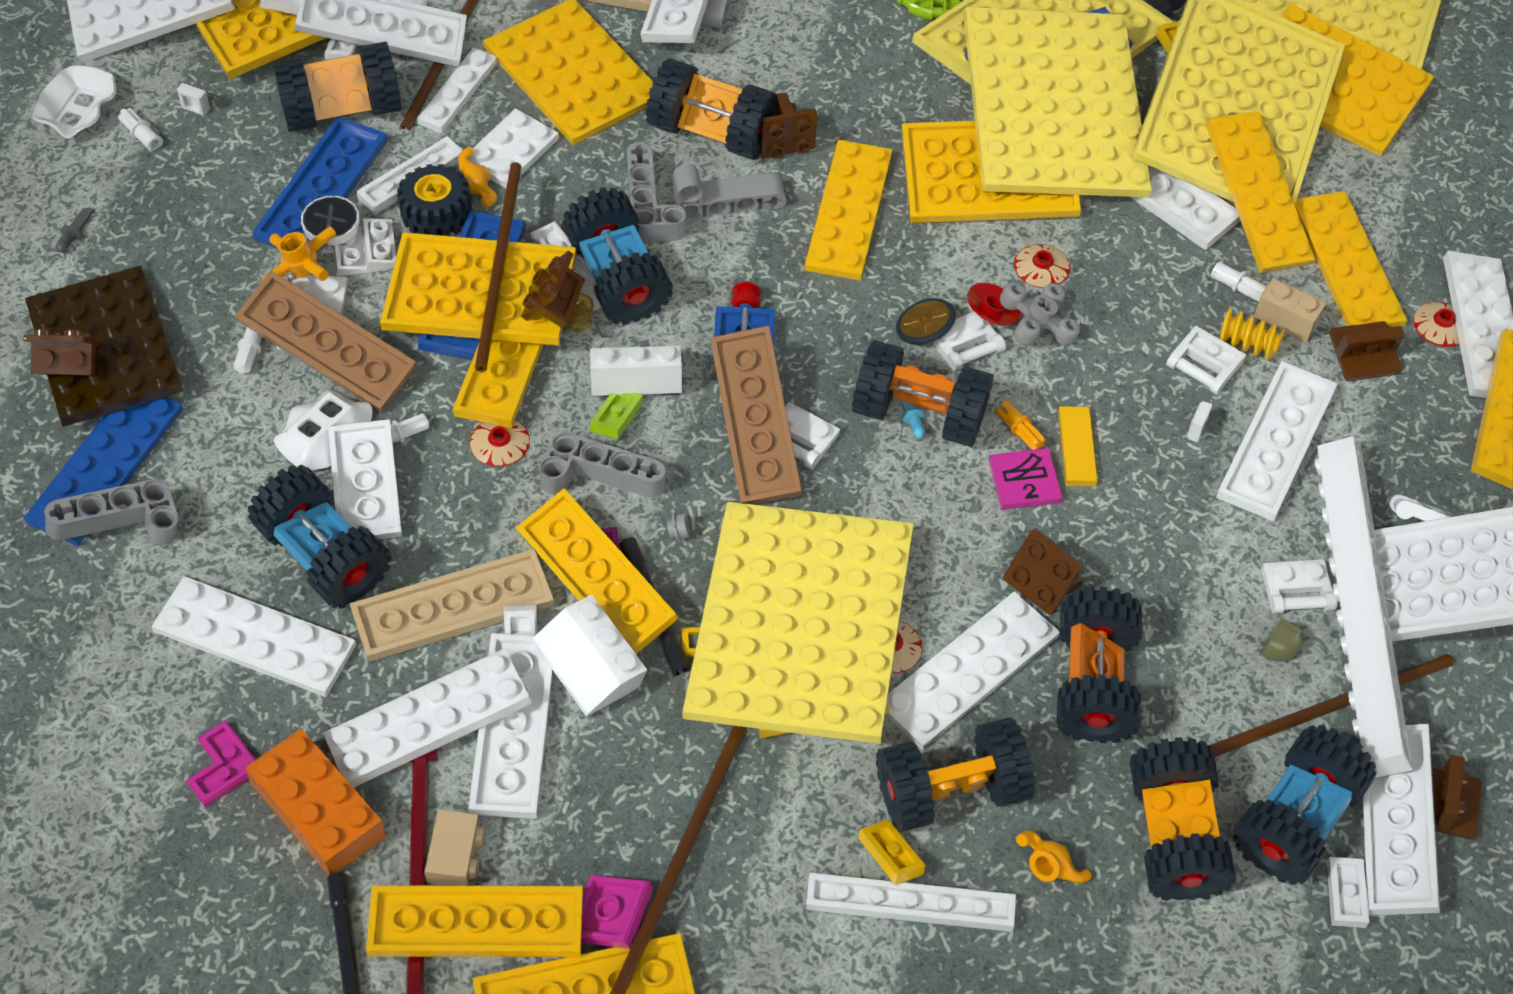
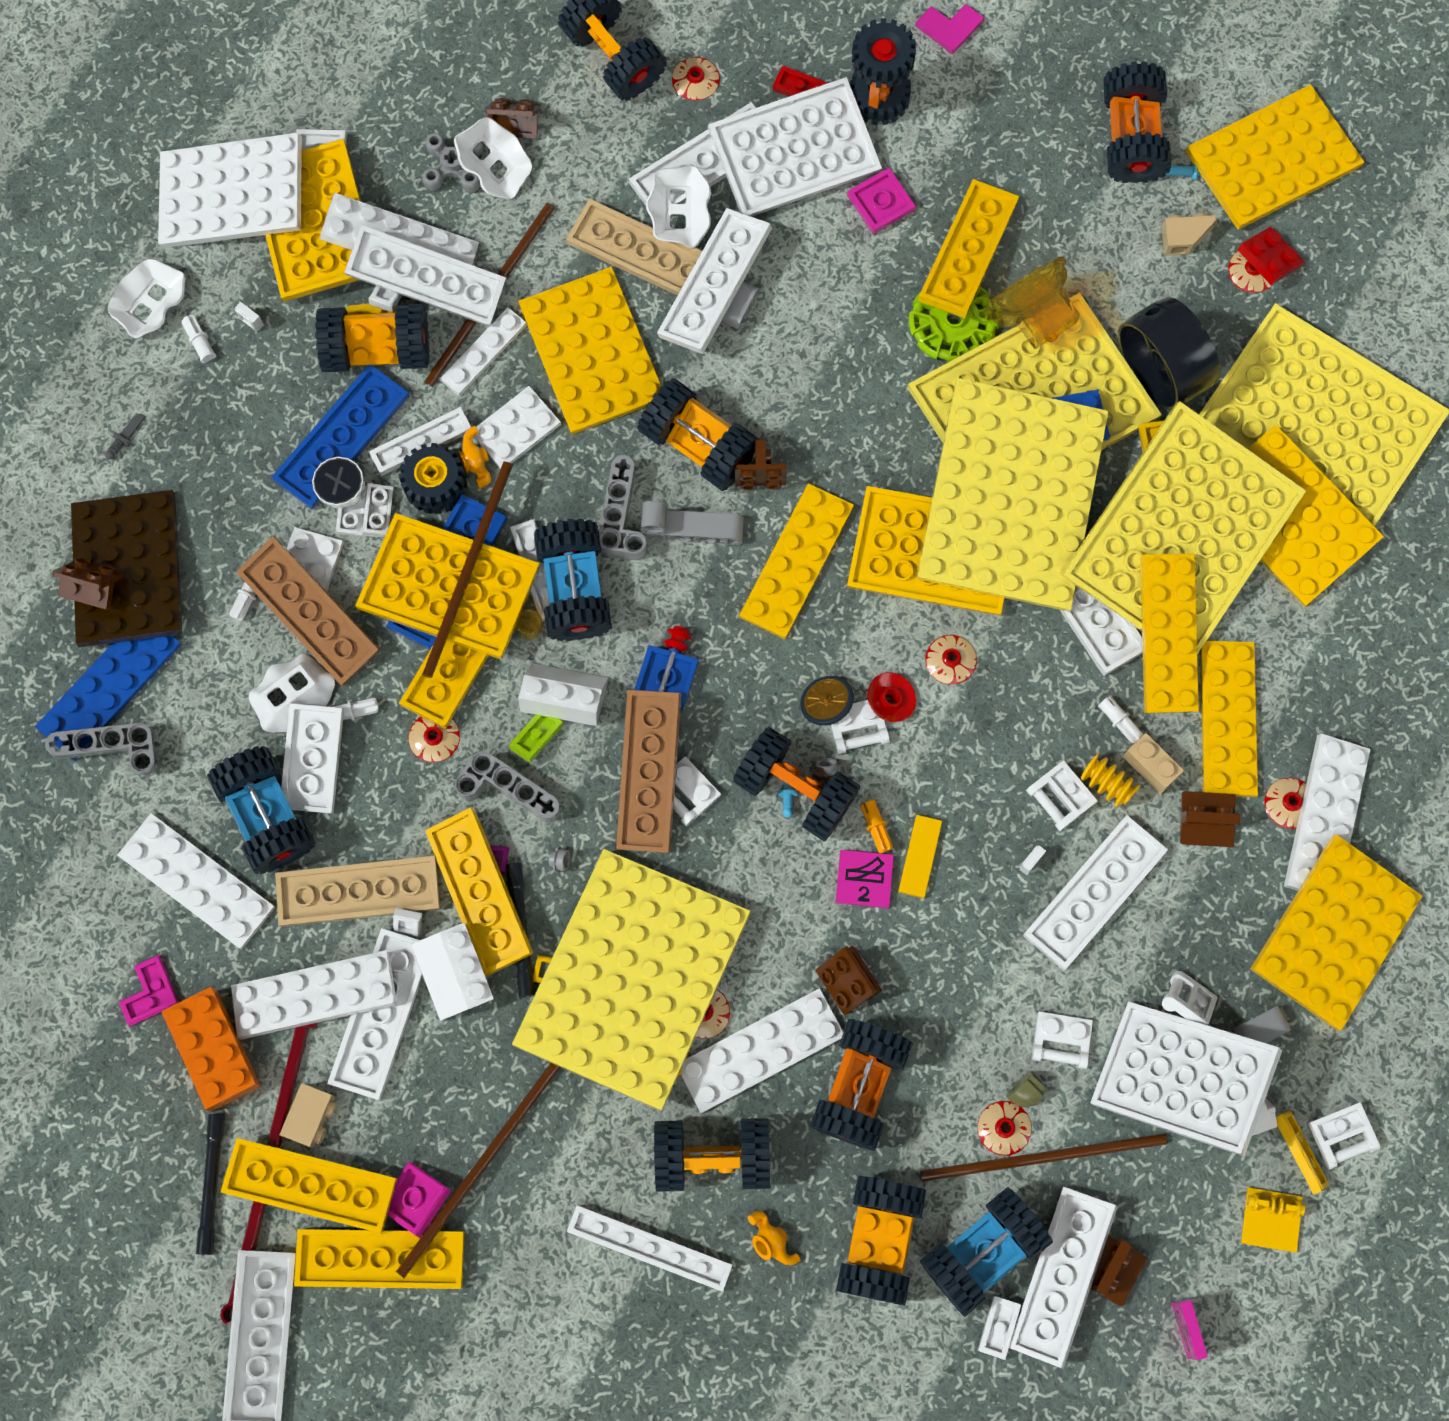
camera: 20 degrees right, 20 degrees up
(299, 255) = (302, 518): light orange bar -> none
(554, 291) = (505, 614): reddish brown bracket -> none
(891, 852) = (646, 1203): yellow plate -> none
(1039, 314) = (928, 717): light grey gear -> none
(1267, 699) = (991, 1134): none -> tan dish
(1363, 607) = (1104, 1078): white brick -> none

